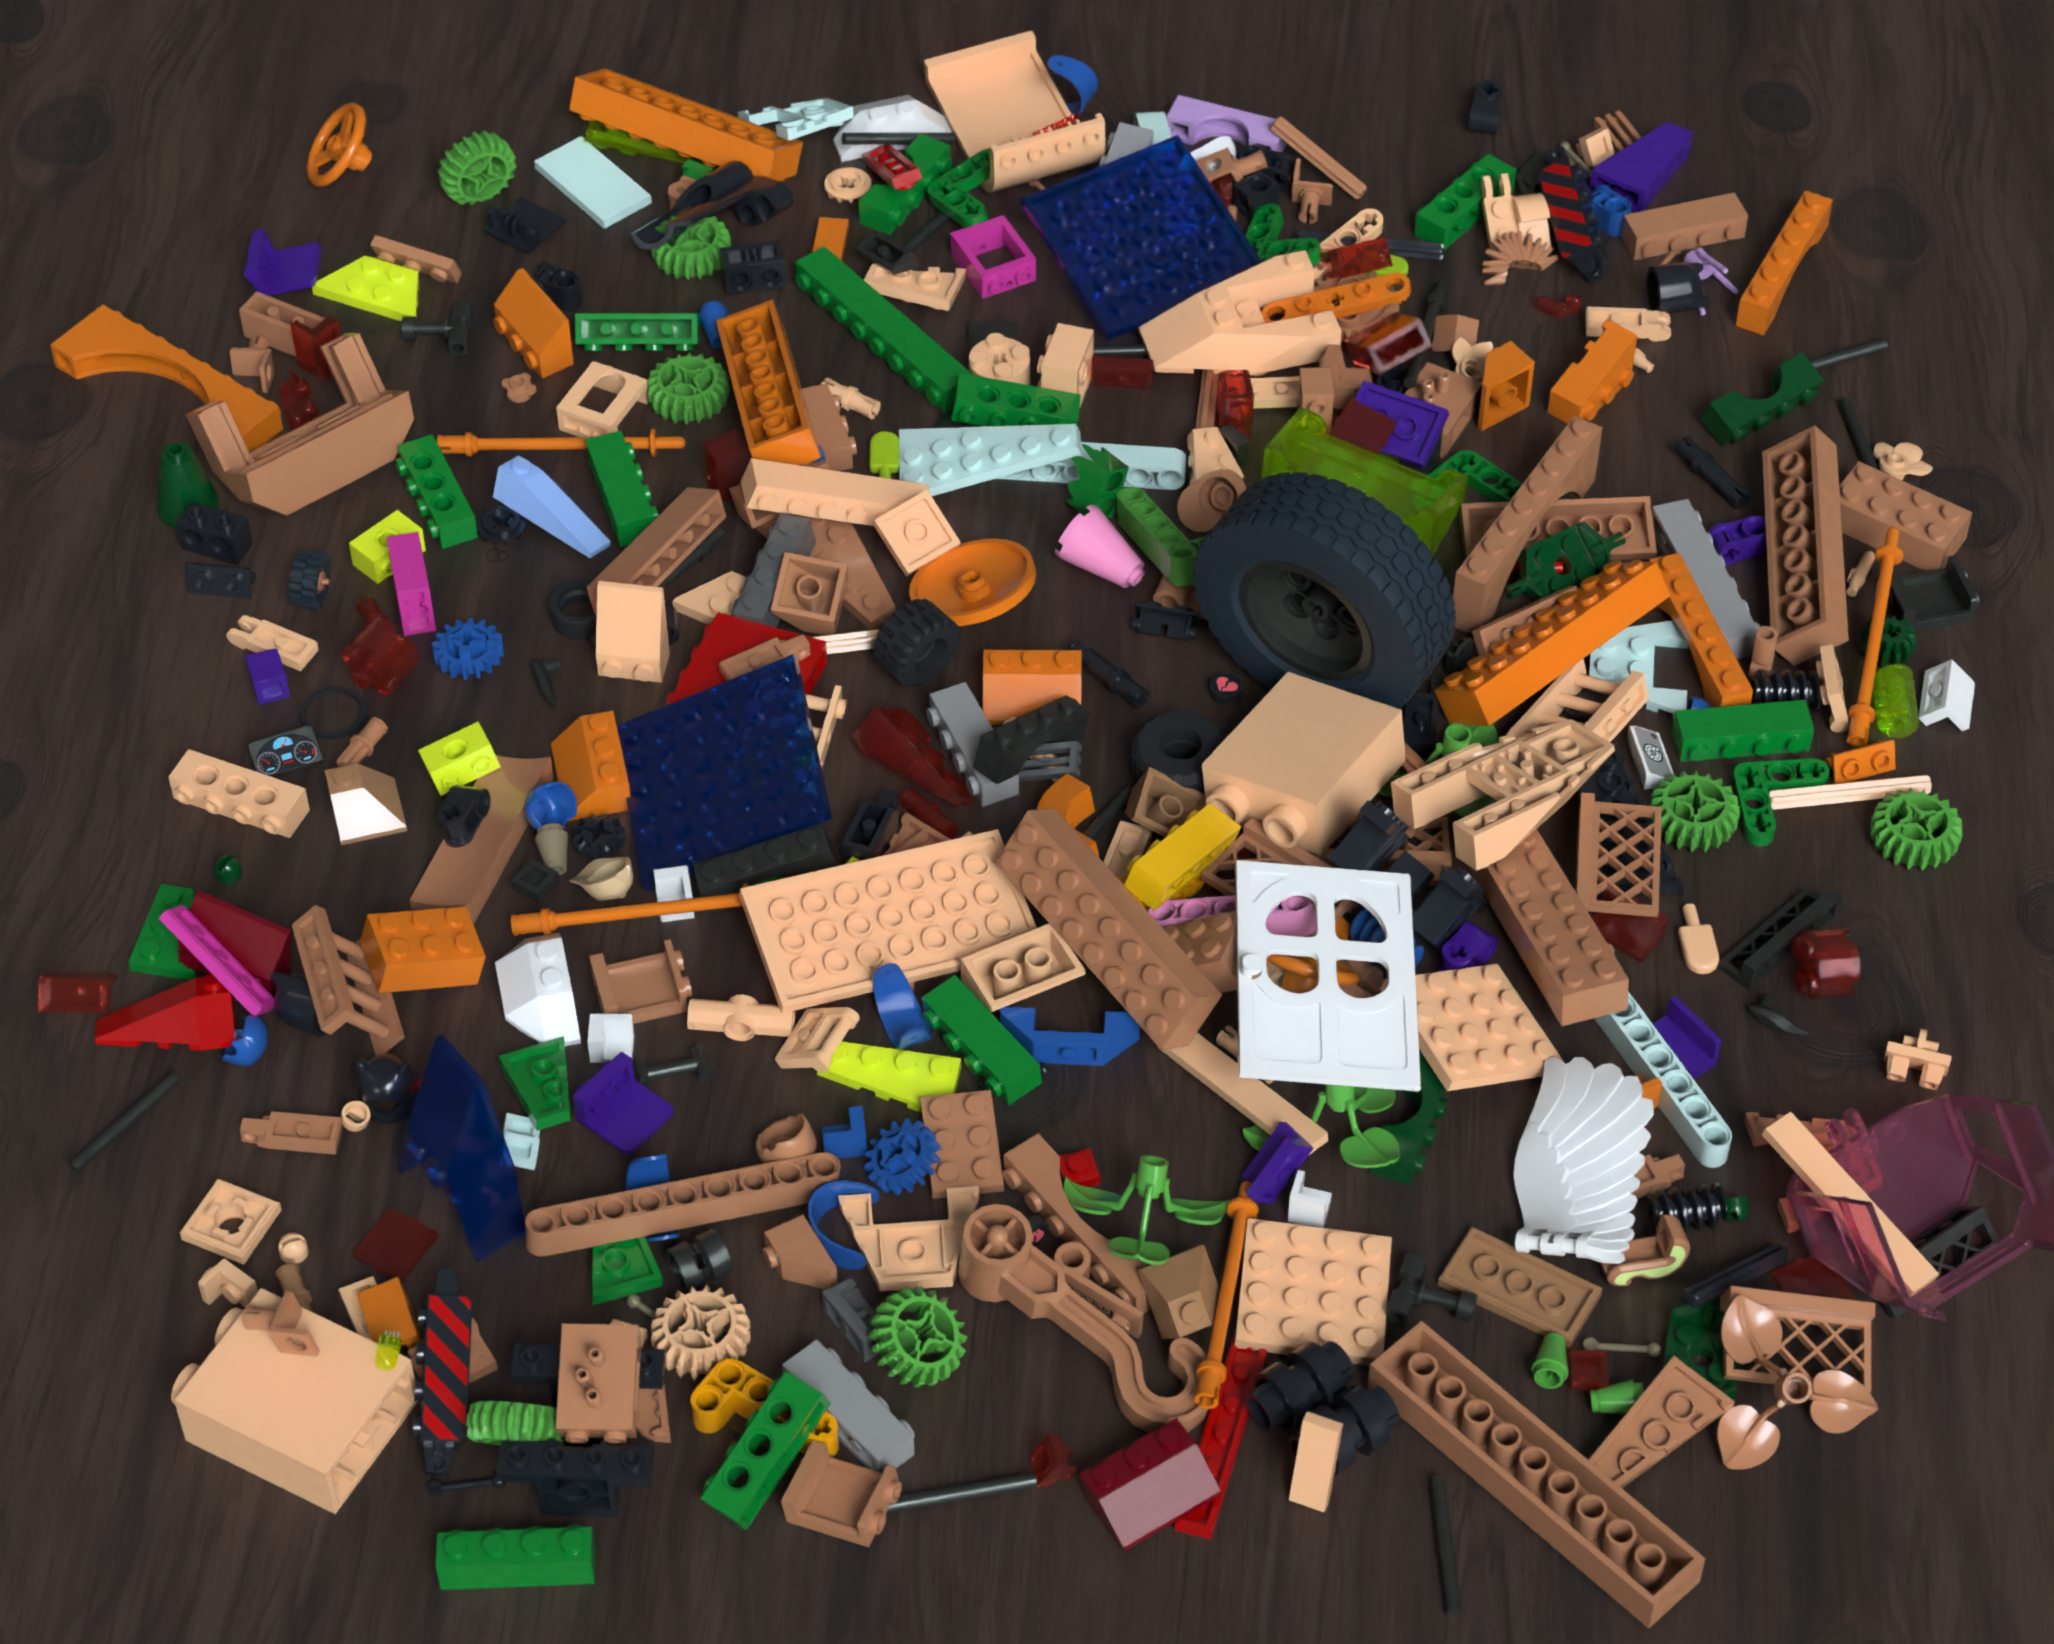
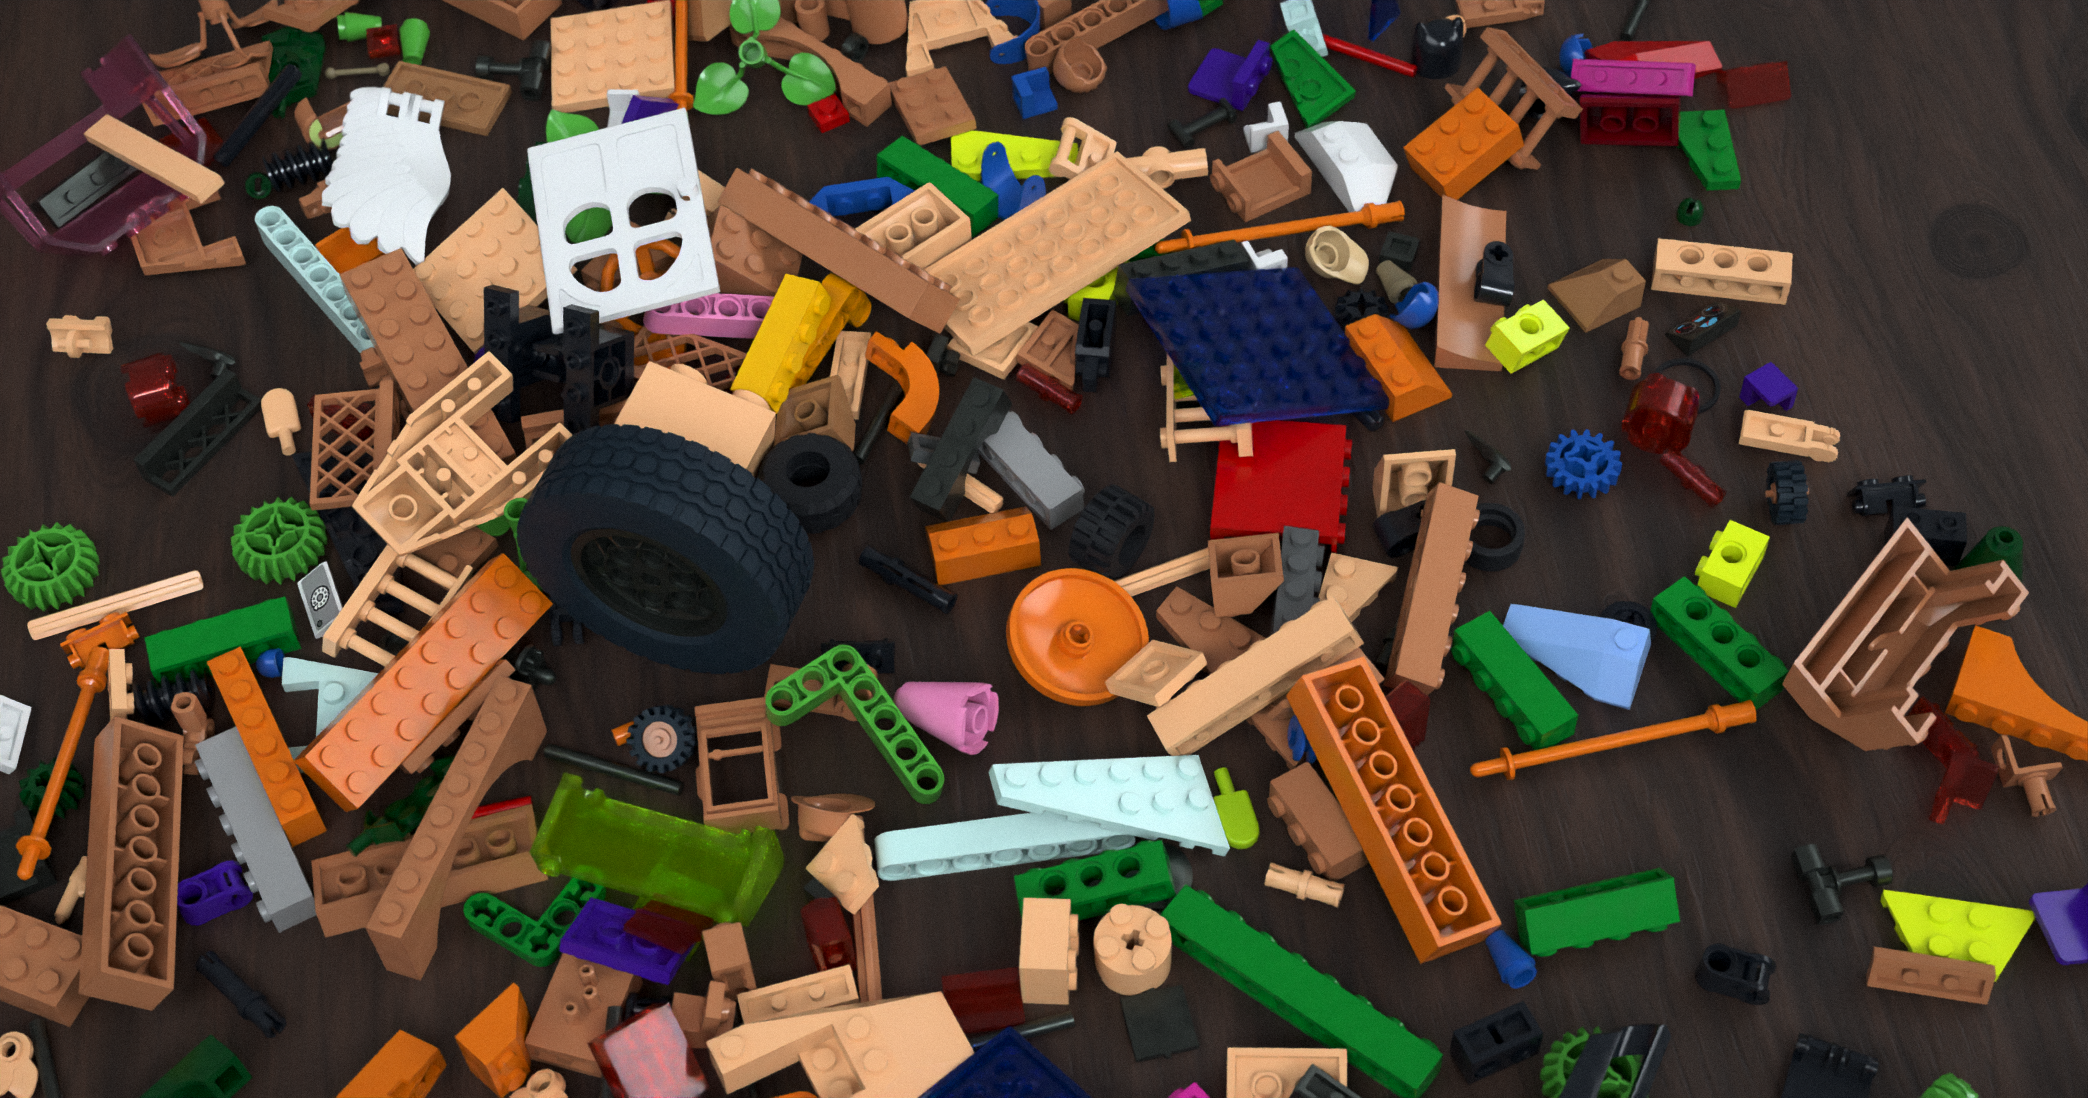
camera: 170 degrees right, 5 degrees up
(272, 320) = (2017, 817): nougat brick -> none
(411, 583) = (1676, 502): dark pink window -> none
(519, 387) = (1699, 824): nougat plate -> none
(533, 325) = (1723, 888): orange slope -> none
(589, 423) = (1596, 772): light nougat panel -> none
(688, 388) = (1496, 828): bright green gear -> none
(763, 655) = (1262, 472): nougat hinge -> none
(902, 745) = (1087, 443): clear red wedge -> none
(902, 1157) = (977, 77): blue gear -> none
(1097, 483) = (967, 784): green piece -> none
(1689, 1038) = (298, 316): dark purple panel -> none
(1763, 781) = (205, 597): green beam -> none
(1895, 701) = (50, 708): clear neon green piece -> none

